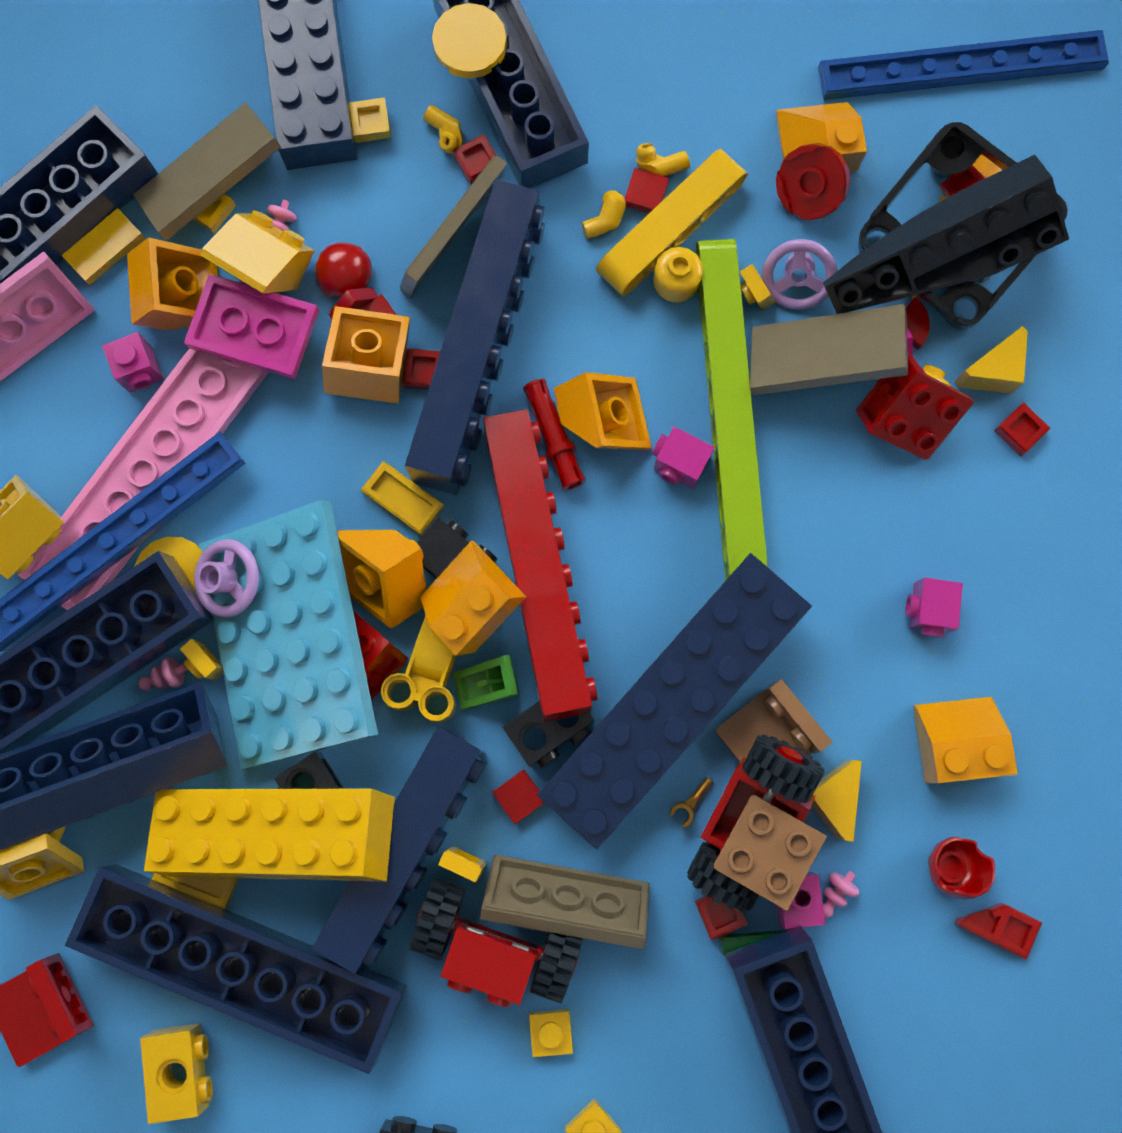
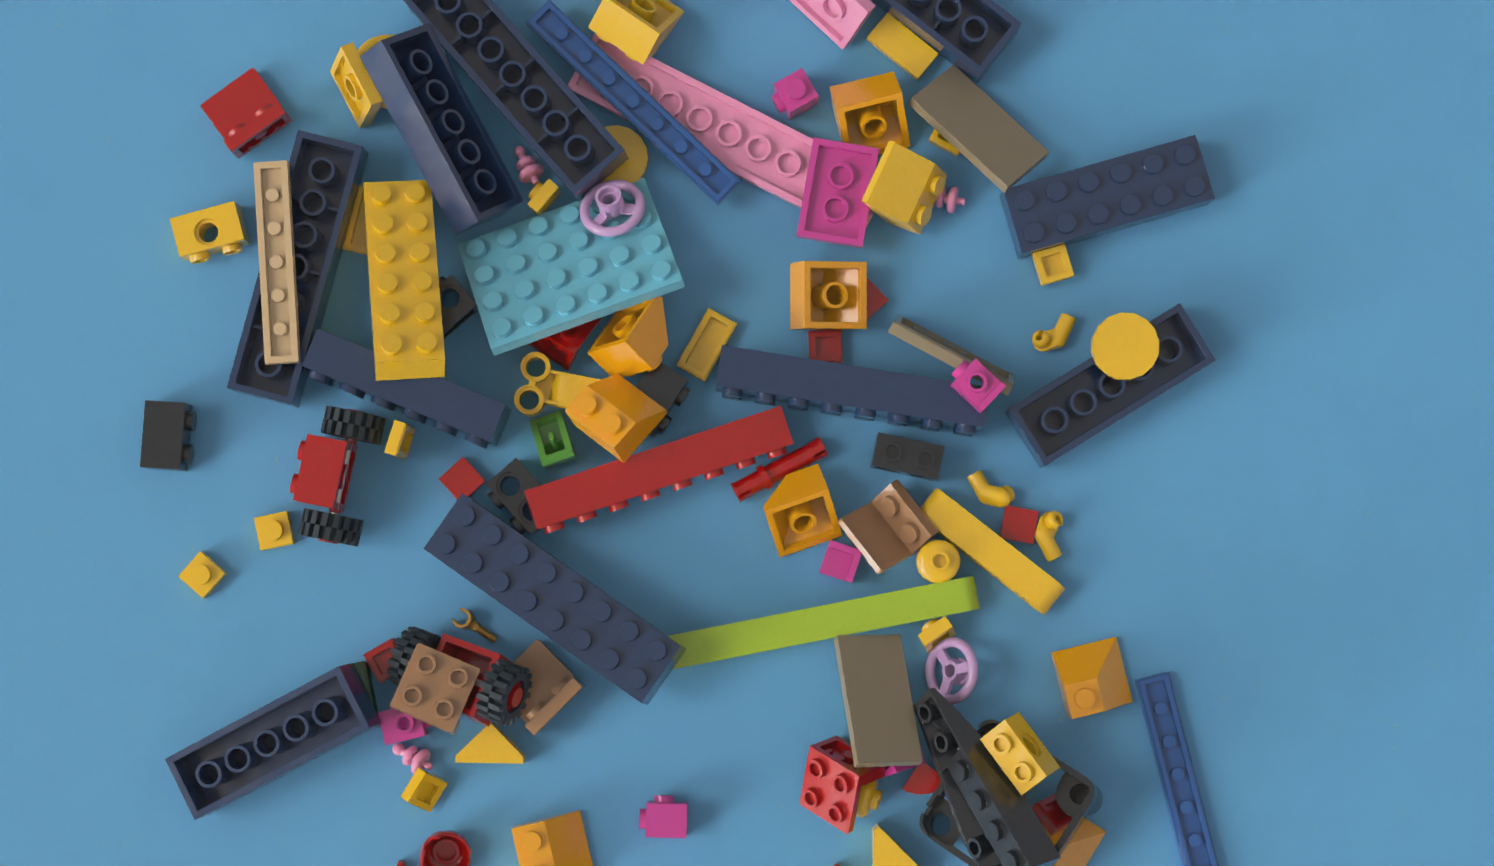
camera: 85 degrees right, 5 degrees up
(221, 991) = (277, 262): none -> tan plate
(342, 268) = (906, 262): red hair -> none
(355, 299) = (878, 277): red tile -> none
(474, 157) = (1030, 367): red tile -> none
(493, 198) = (980, 397): none -> dark pink brick
(558, 293) = (907, 457): none -> black brick
(567, 901) = (379, 529): dark tan tile -> none
(634, 317) = (888, 528): none -> medium nougat bracket
(665, 378) = (840, 561): none -> dark pink panel
(681, 457) = (770, 583): dark pink brick -> none
(813, 181) = (1041, 674): red tile -> none
(878, 884) = (424, 790): none -> yellow plate
(908, 195) = (1020, 753): none -> yellow brick

